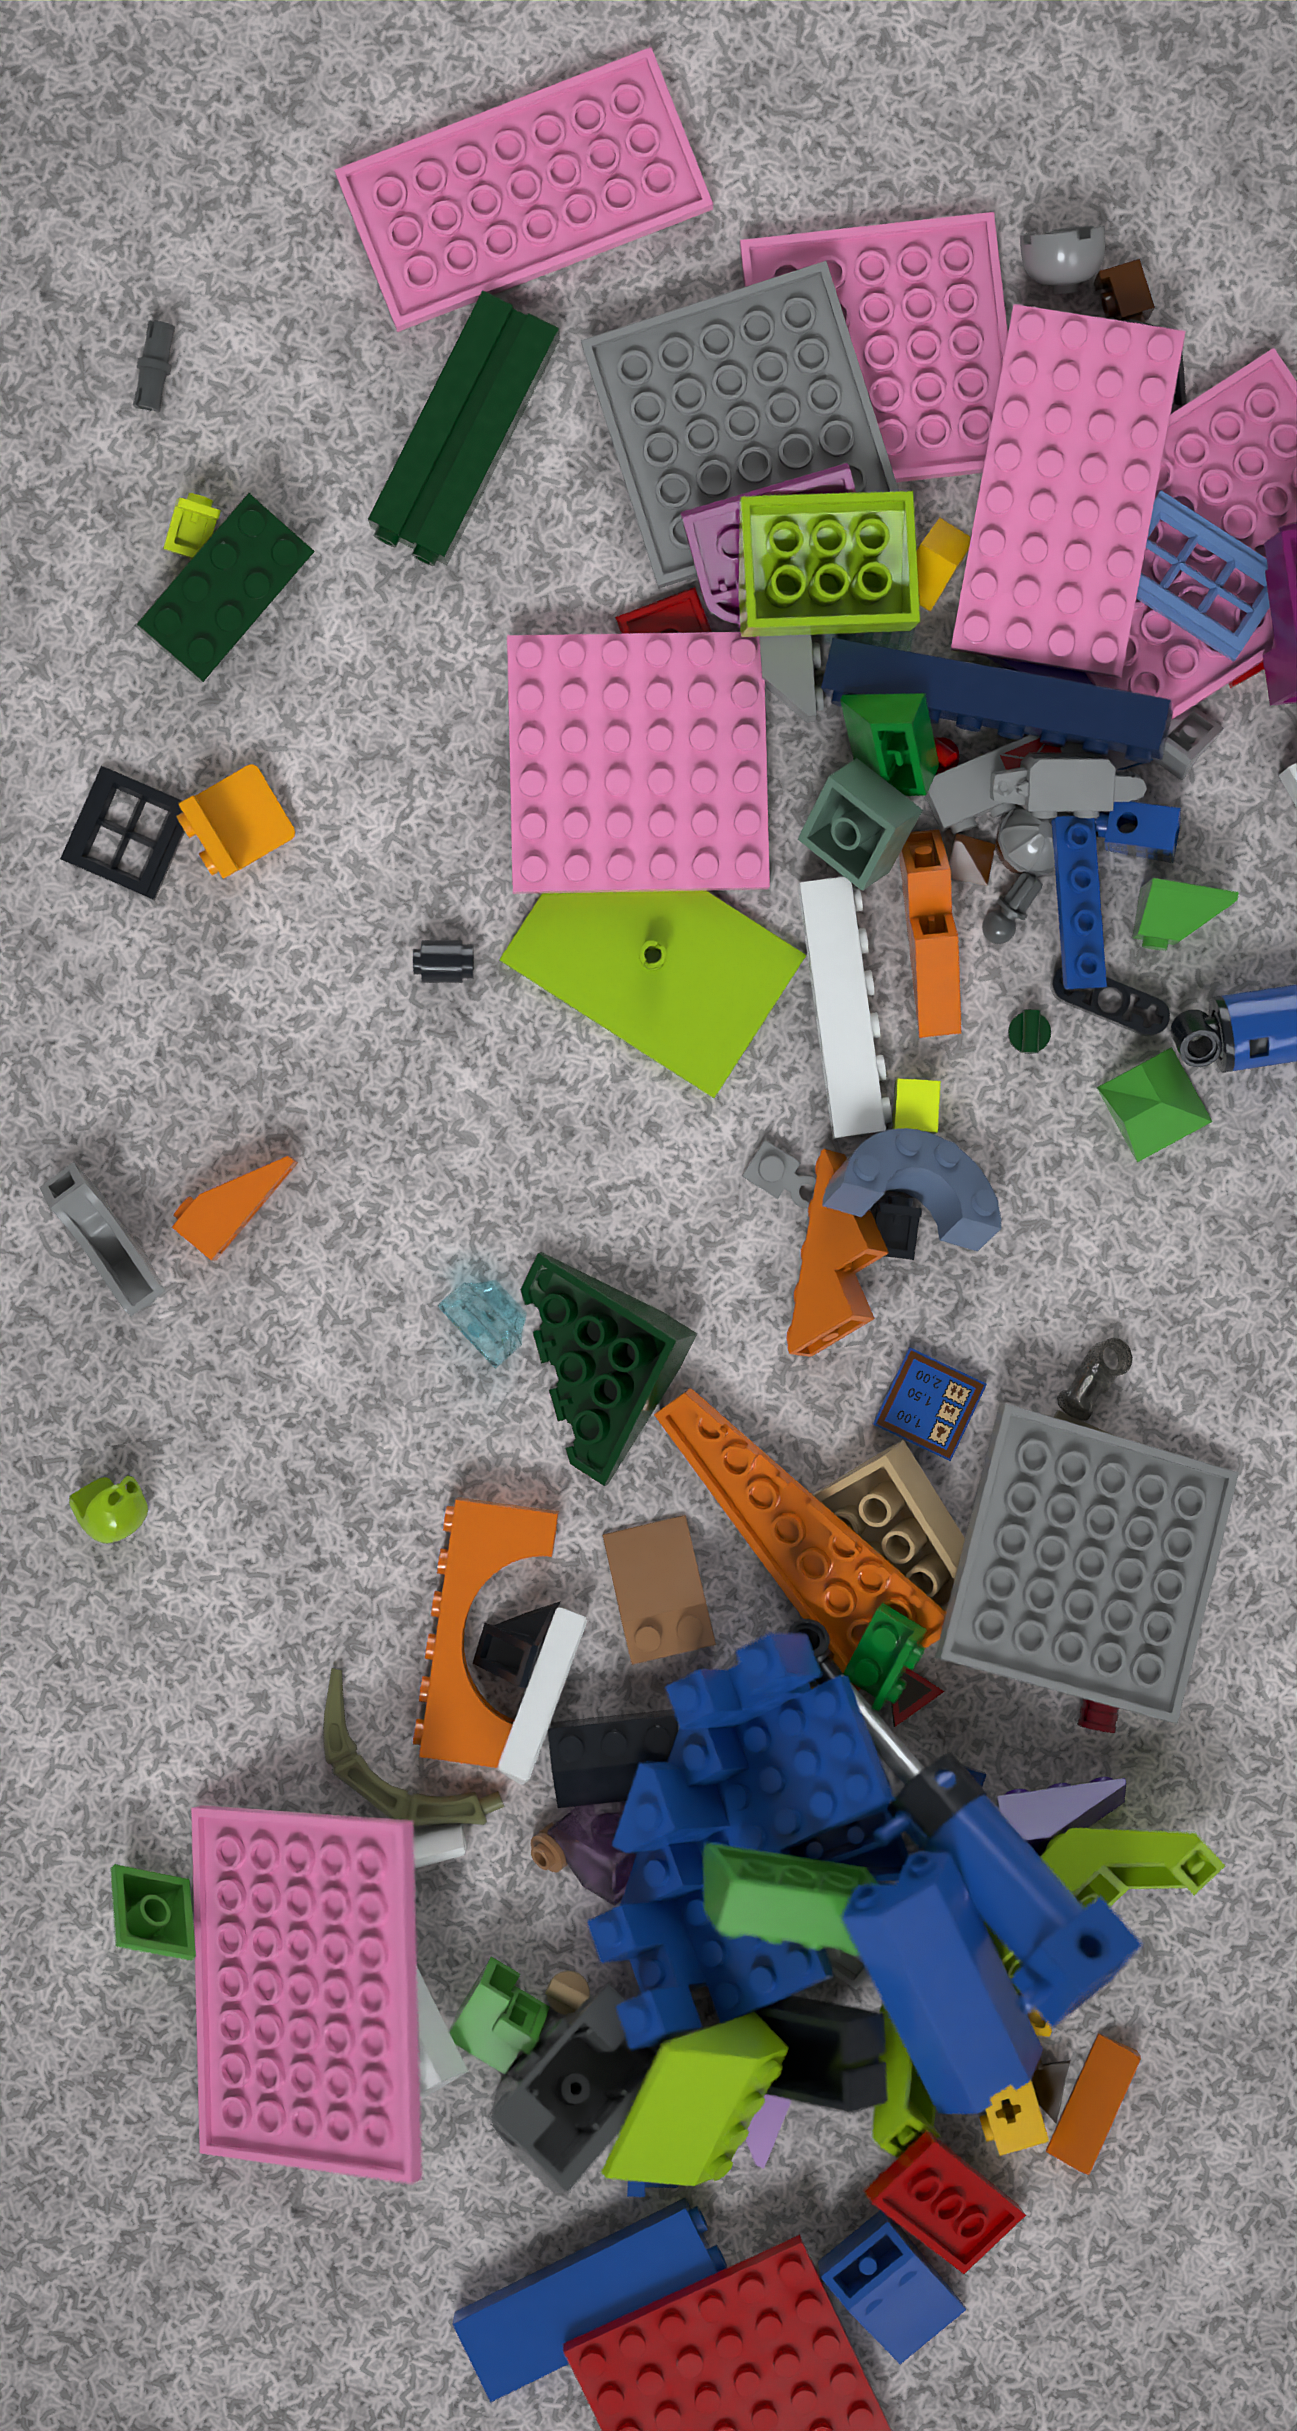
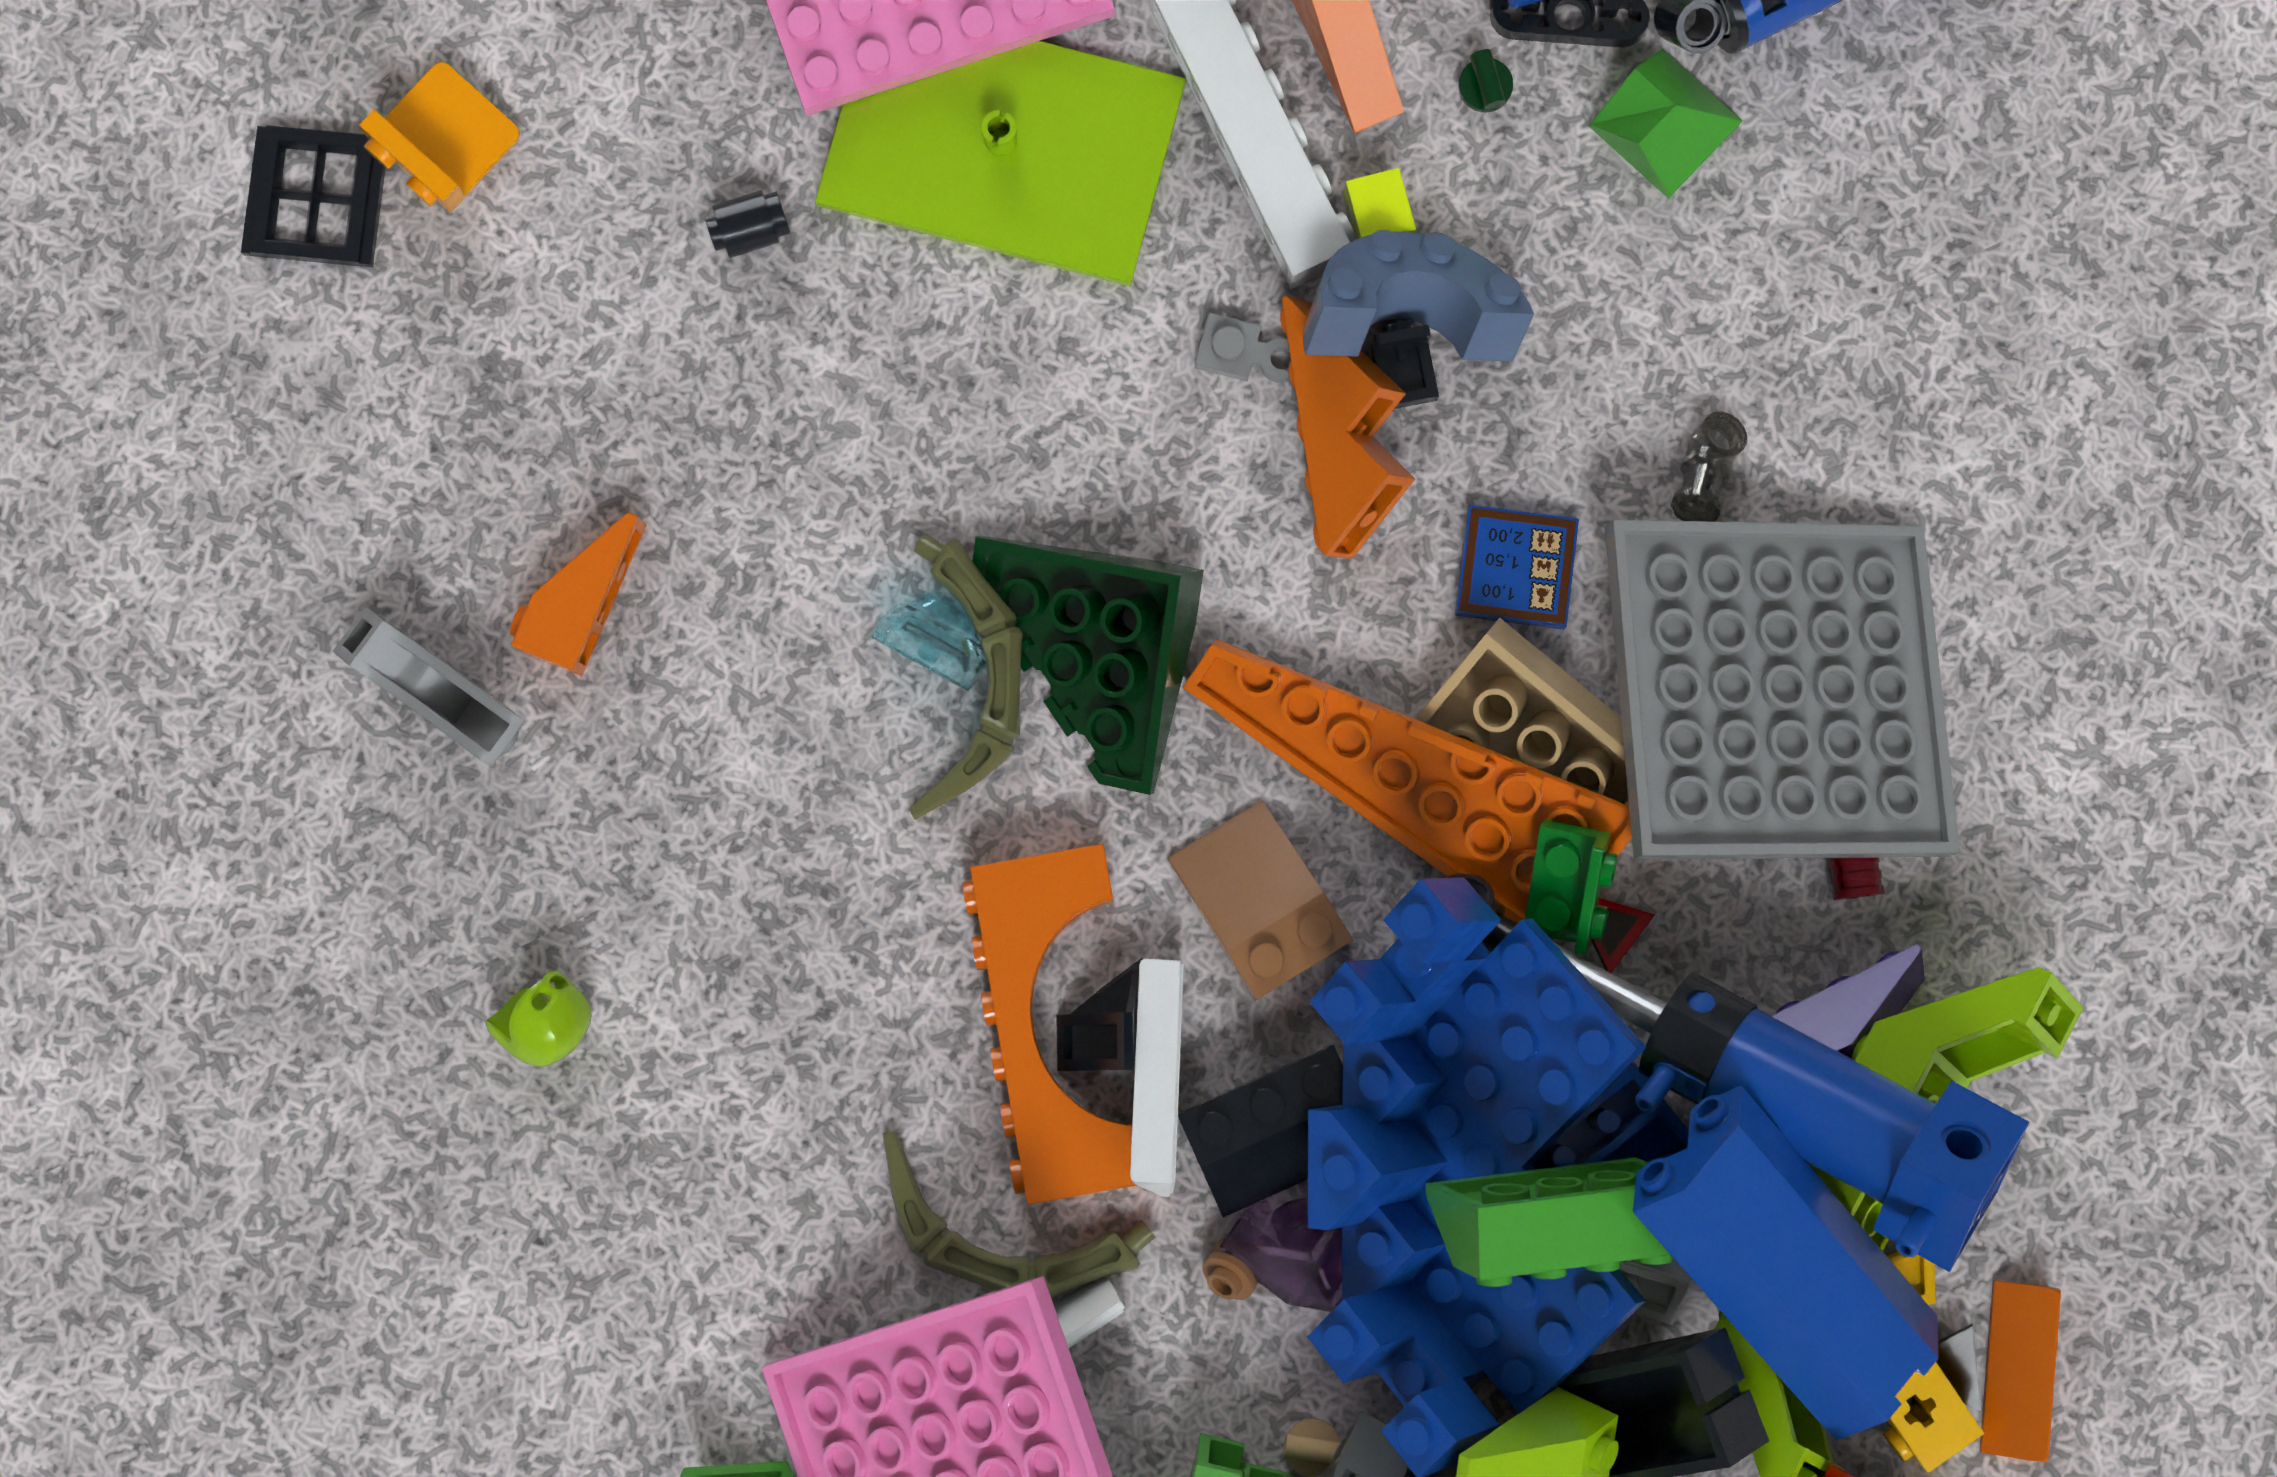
camera: 15 degrees left, 5 degrees down
(529, 1347) = (1002, 652): none -> olive animal

